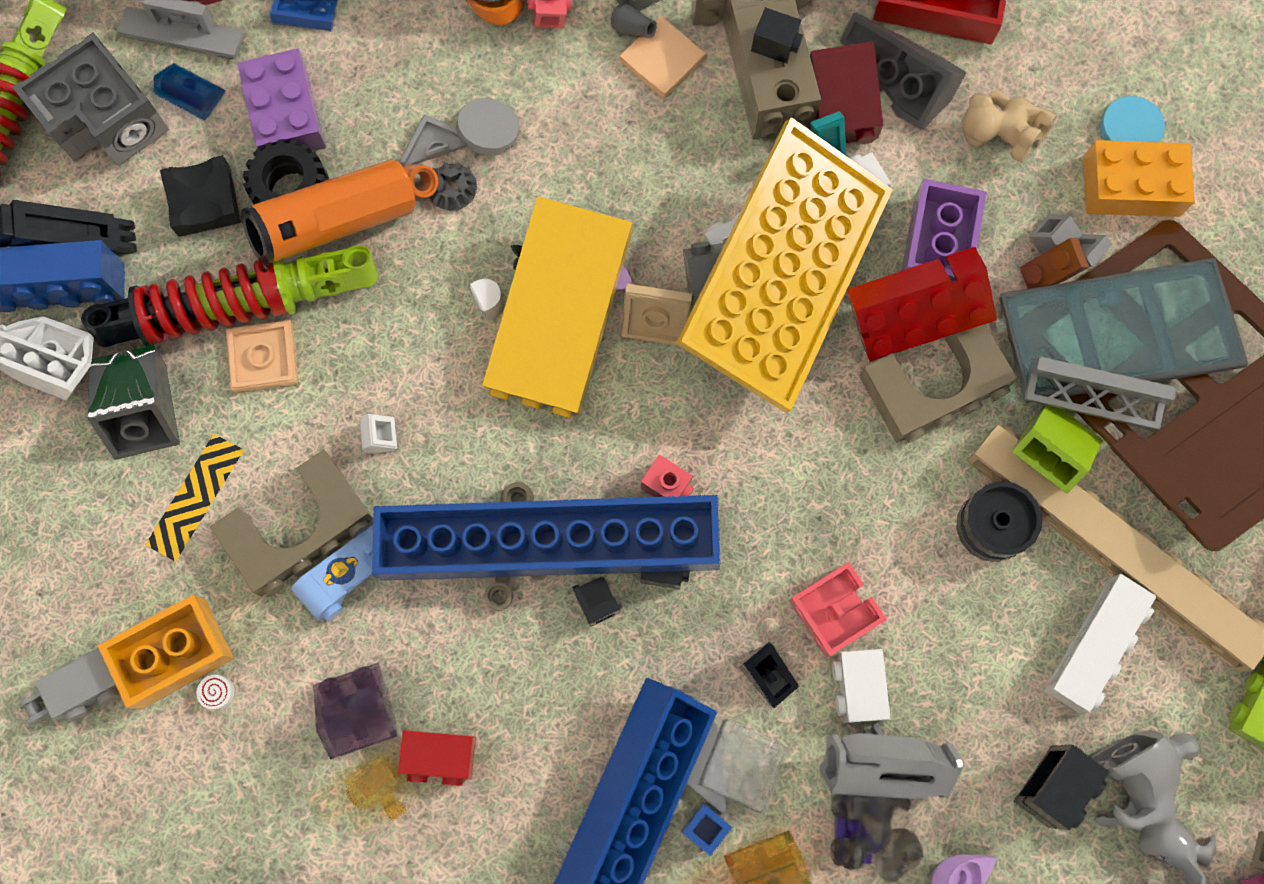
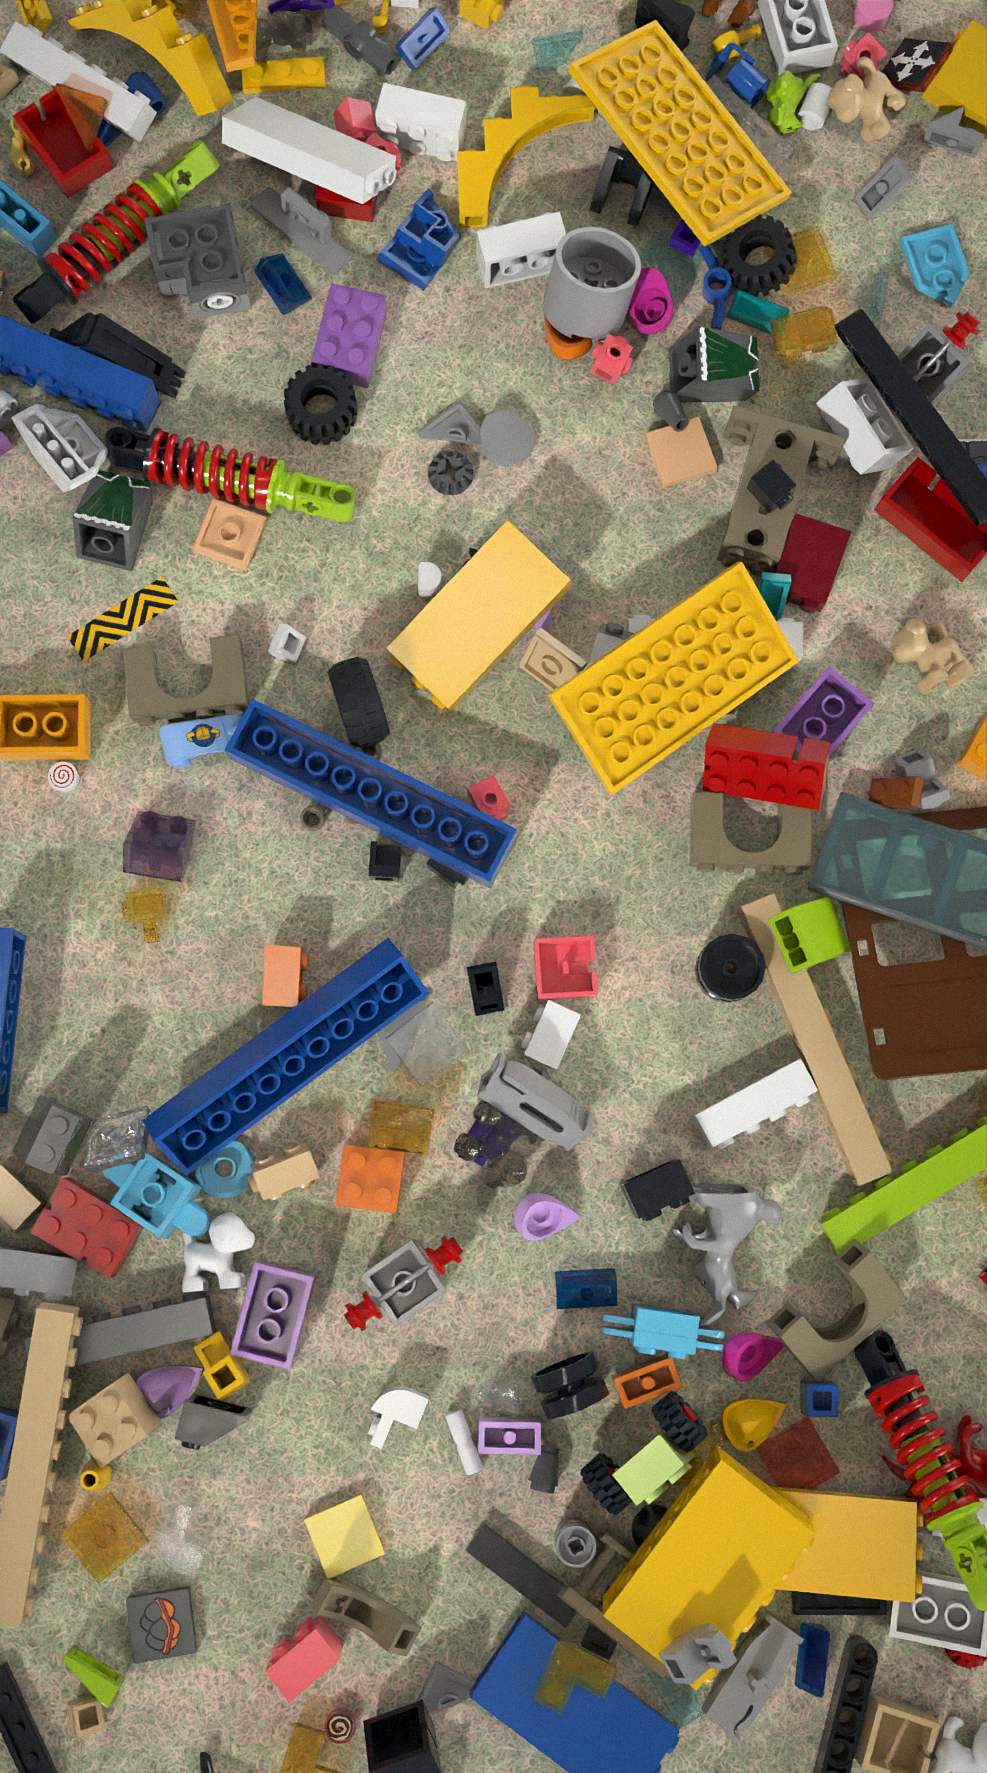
camera: 25 degrees right, 5 degrees up
(200, 196) = (247, 379): black brick -> none
(334, 209) = (346, 447): orange piece -> none
(437, 756) = (203, 912): red brick -> none
(484, 452) = (358, 702): none -> black tyre
(558, 777) = (284, 976): none -> orange brick
(706, 829) = (372, 1073): blue brick -> none
(908, 73) = (876, 572): dark grey wedge -> none
(1100, 380) = (872, 902): light grey fence -> none

